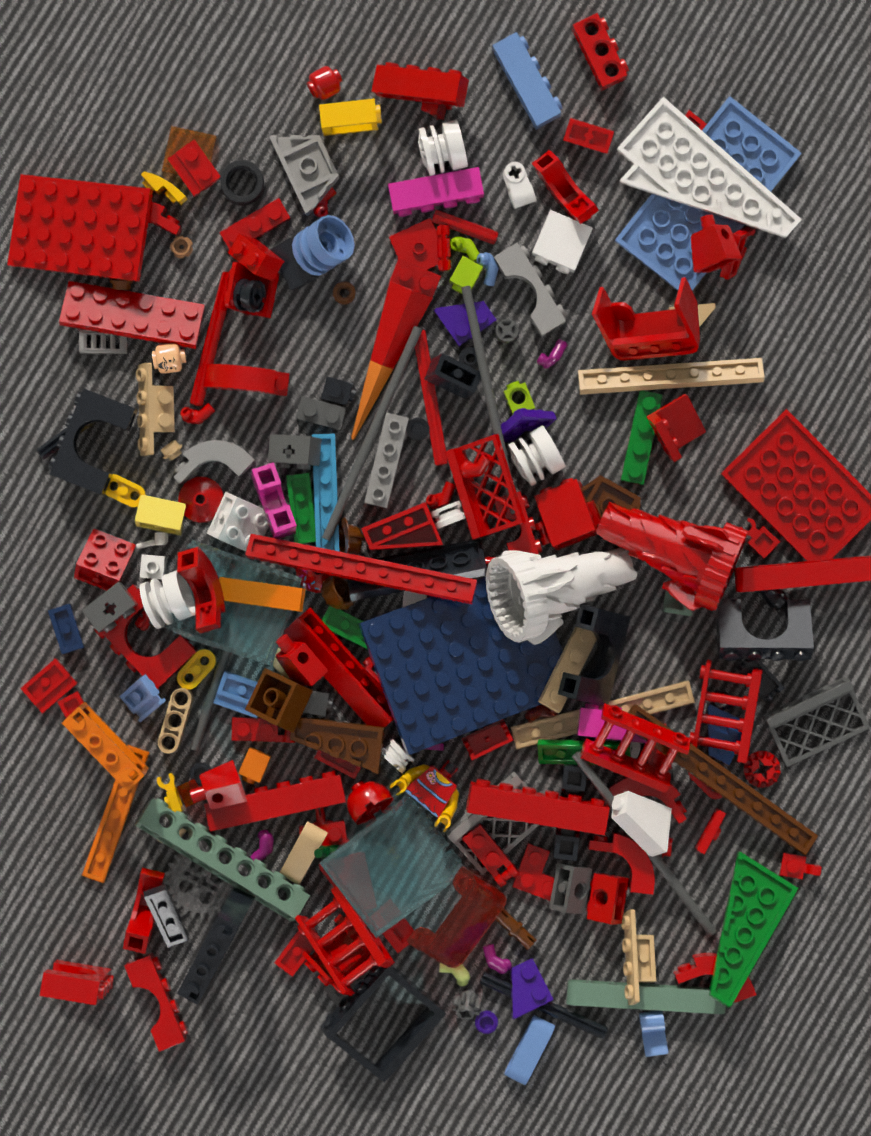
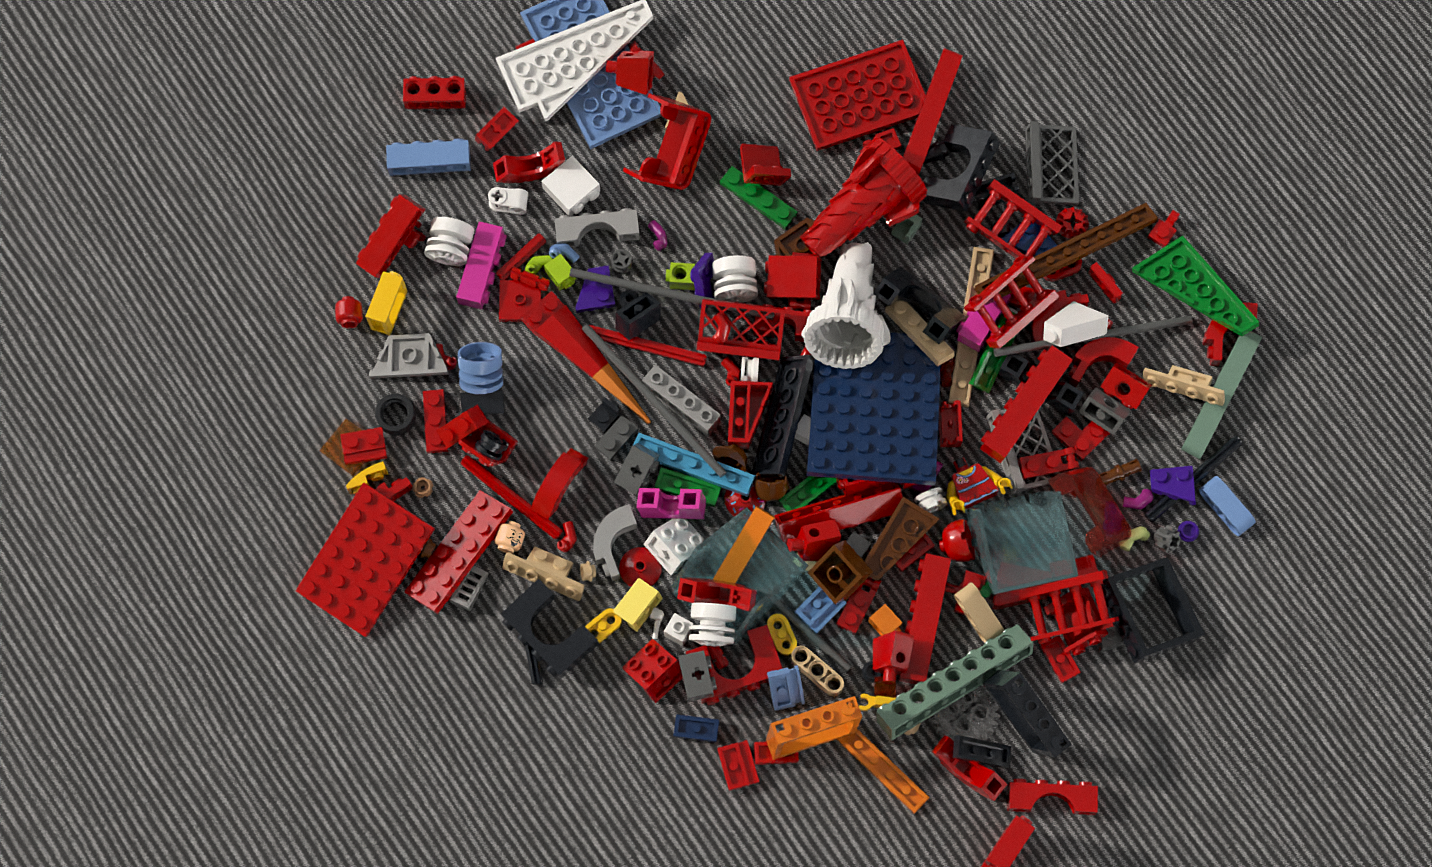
camera: 65 degrees left, 15 degrees down
(265, 845) = (957, 644): magenta arm -> none
(344, 285) = (526, 369): reddish brown plate -> none
(361, 568) = (762, 452): red plate -> none
(417, 428) = (667, 364): black plate -> none
(653, 1033) = (1250, 401): medium blue panel -> none
(671, 376) = (720, 153): tan plate -> none

